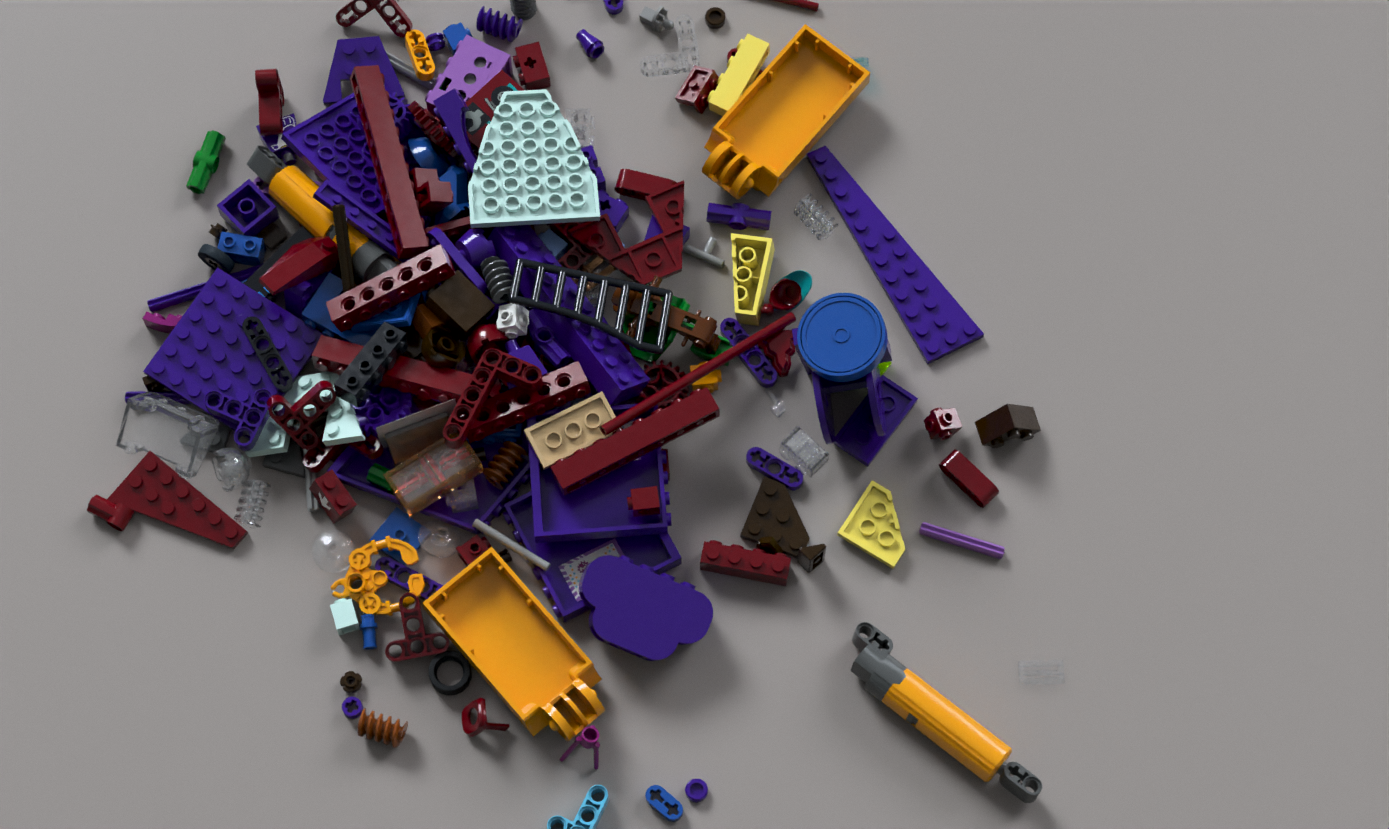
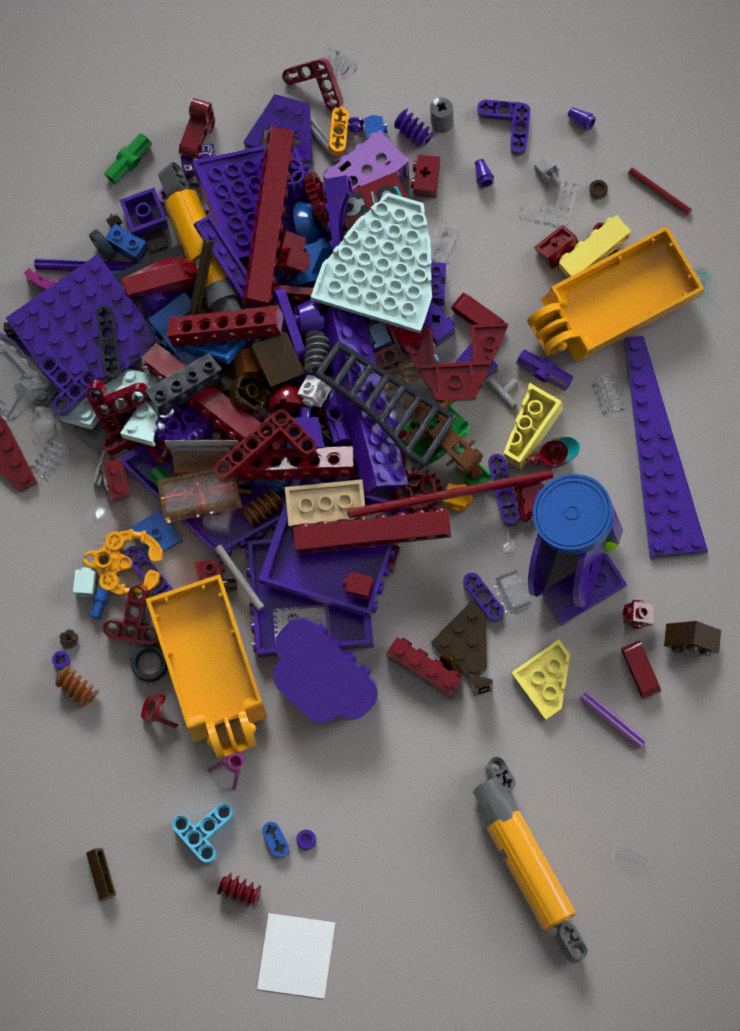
camera: 30 degrees right, 5 degrees up
(436, 544) = (181, 553): clear dish -> none

